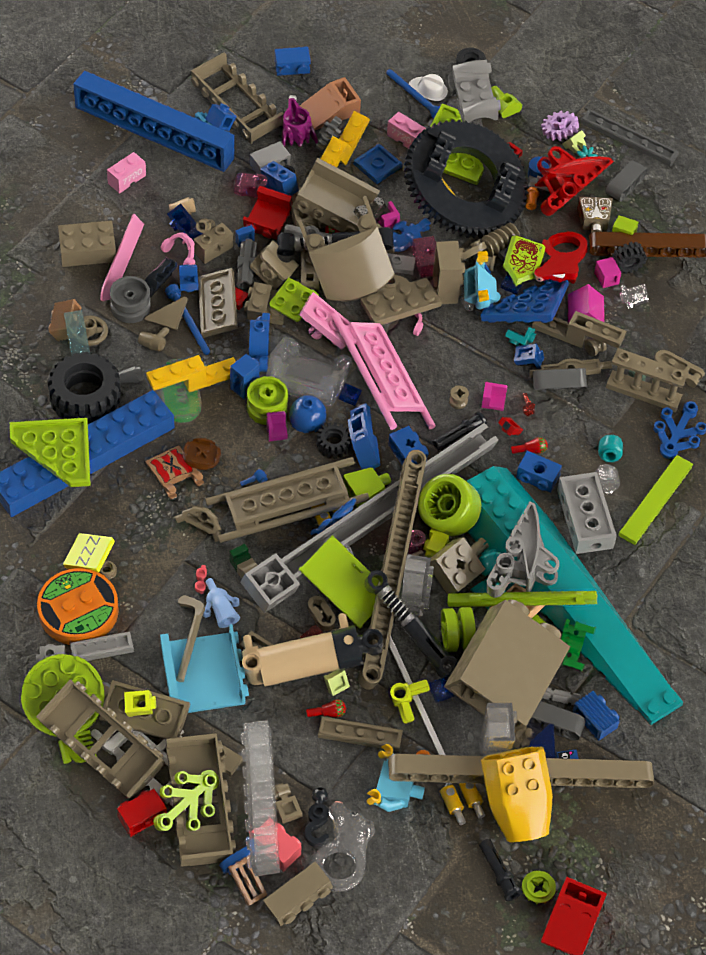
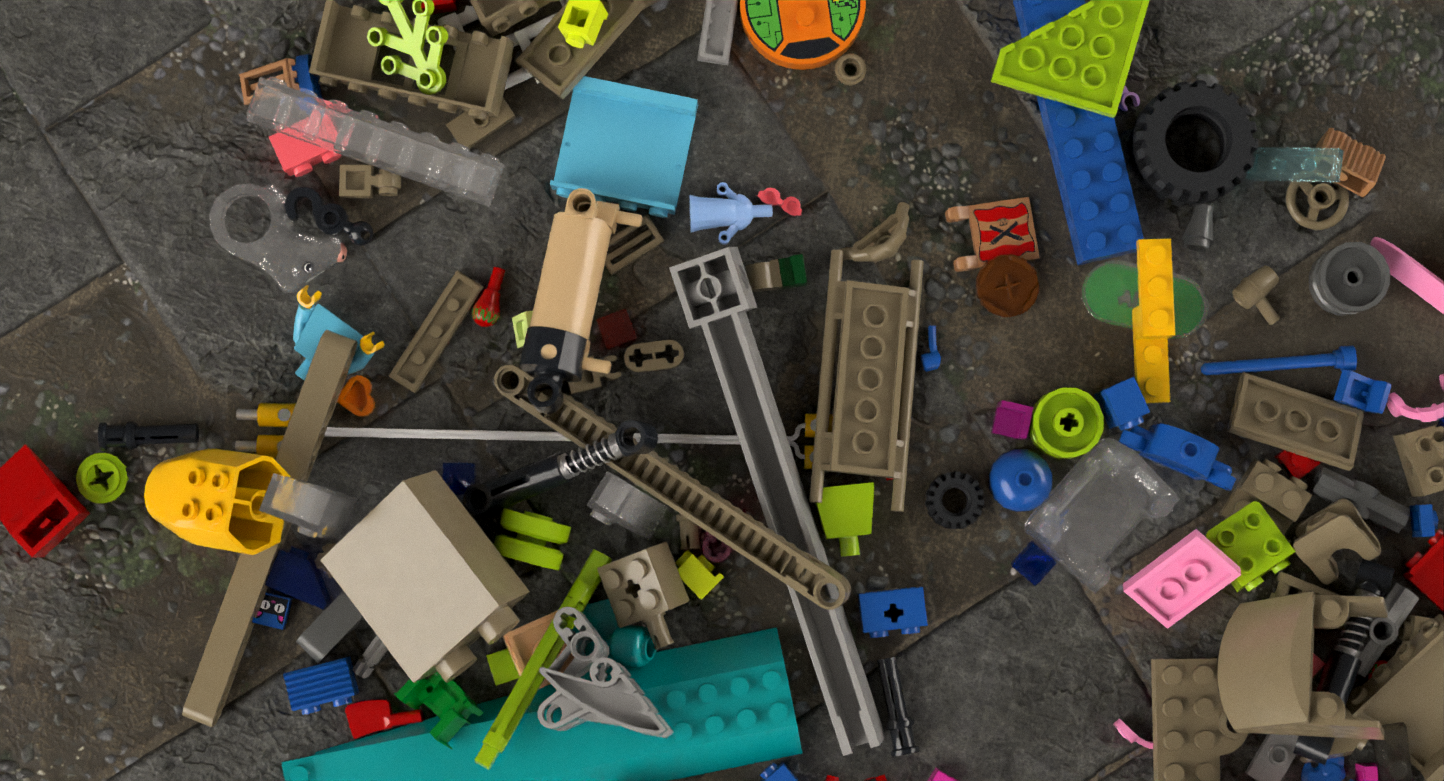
camera: 120 degrees right, 30 degrees up
(89, 552) = (887, 50): neon yellow tile -> none
(160, 274) = (1380, 343): black slope -> none
(169, 315) = (1297, 333): dark tan tile -> none
(186, 601) = (727, 178): dark tan piece -> none
(298, 894) = (219, 141): dark tan brick -> none
(339, 514) = (787, 430): blue piece -> none
(340, 581) = (681, 393): lime container -> none
(362, 437) = (937, 543): blue slope -> none
(386, 367) = (1053, 638): bright pink piece -> none
(404, 703) = (466, 426): neon yellow axle -> none
(437, 500) = (747, 620): lime wheel -> none
(455, 400) = (957, 733): dark tan wheel -> none
(598, 682) = (377, 715): none -> red piece

